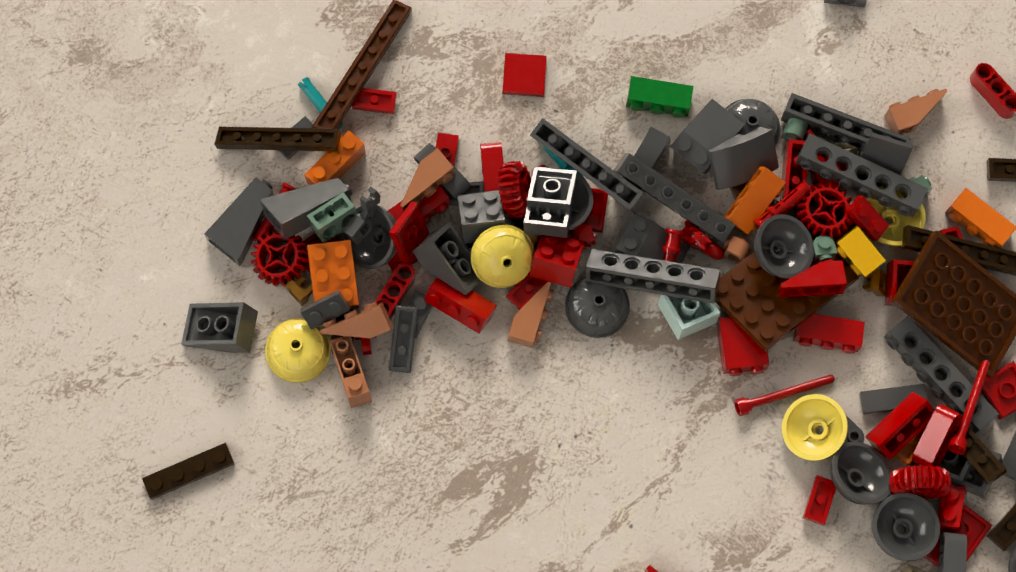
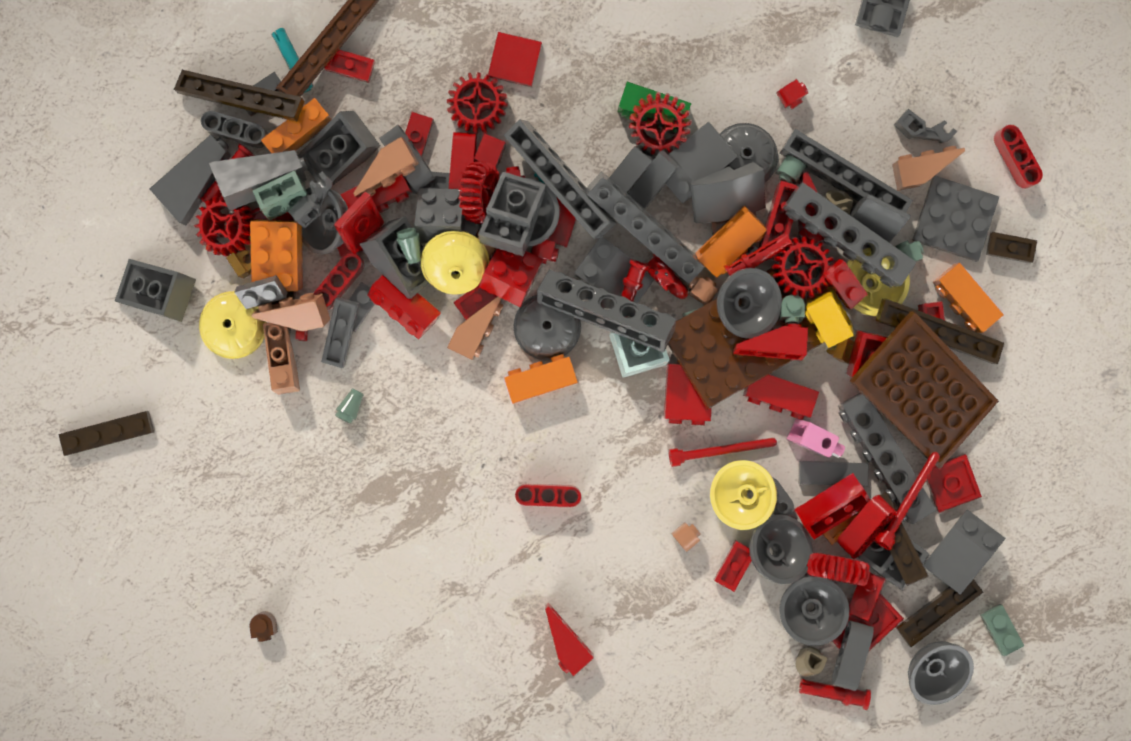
camera: 15 degrees right, 15 degrees up
(269, 164) = (225, 125): none -> dark grey beam
(378, 167) = (339, 147): none -> dark grey slope
(422, 408) = (349, 406): none -> sand green cone
(459, 244) = (409, 244): none -> sand green cone
(499, 133) = (485, 103): none -> red gear
(517, 151) = (490, 150): none -> red brick
(601, 353) = (540, 378): none -> orange brick
(638, 456) = (537, 500): none -> red beam
(673, 153) = (653, 179): none -> dark grey tile
(680, 103) = (669, 123): none -> red gear
(768, 478) = (686, 536): none -> nougat plate
(781, 67) = (792, 94): none -> red plate
(870, 366) = (815, 439): none -> bright pink torso
(916, 82) = (935, 133): none -> dark grey piece
(952, 153) = (955, 218): none -> dark grey plate

